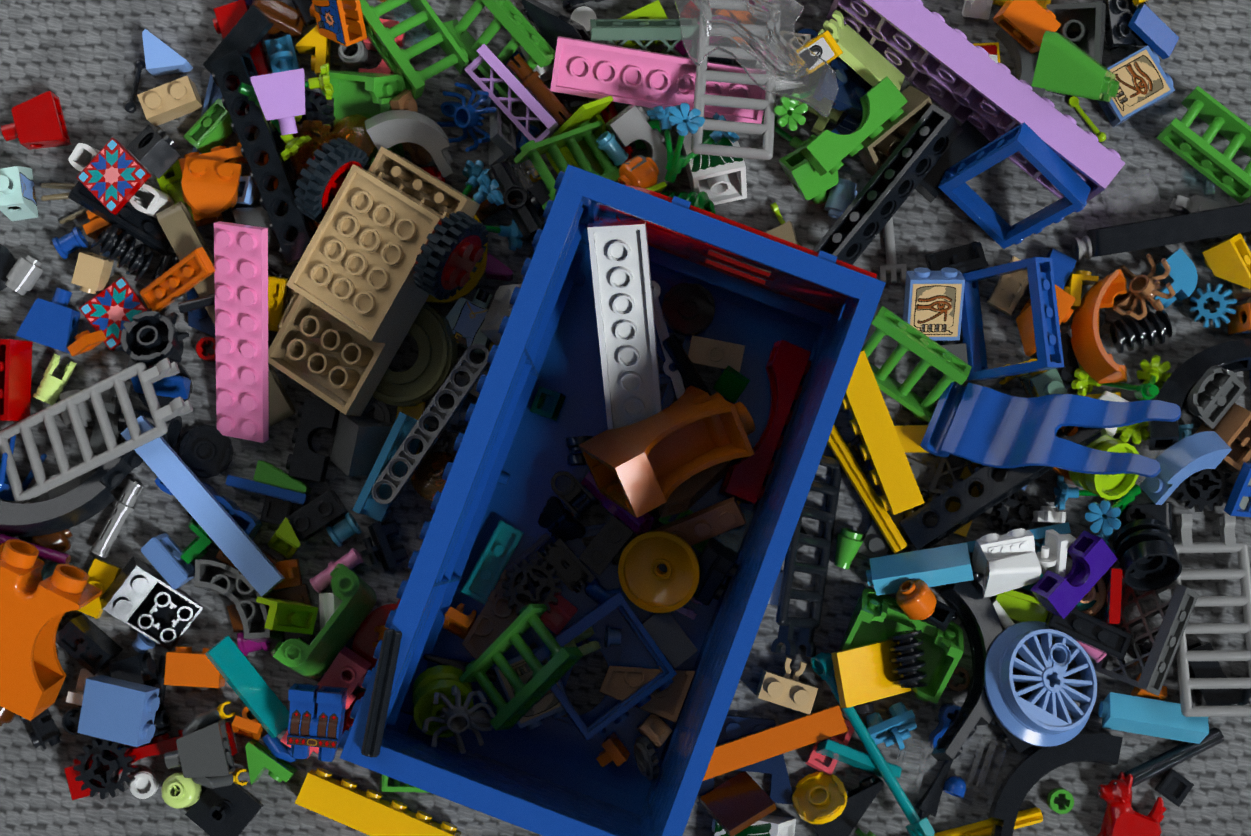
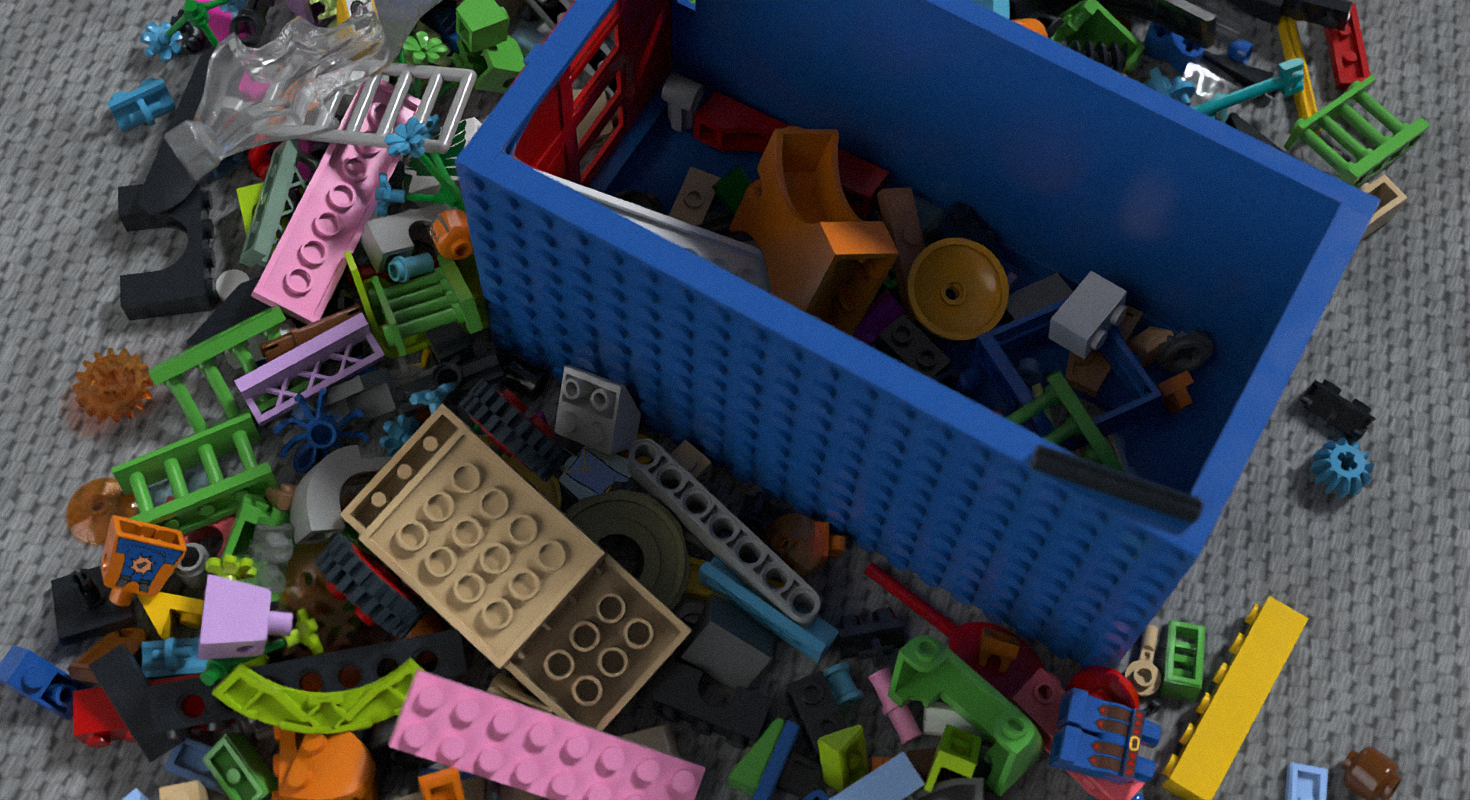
camera: 80 degrees left, 20 degrees down
(243, 171) = (315, 711): none -> lime tile
(352, 105) = (271, 551): none -> clear hips
(645, 676) = (1088, 315): none -> white brick
(796, 326) = (683, 100): none -> light grey piece

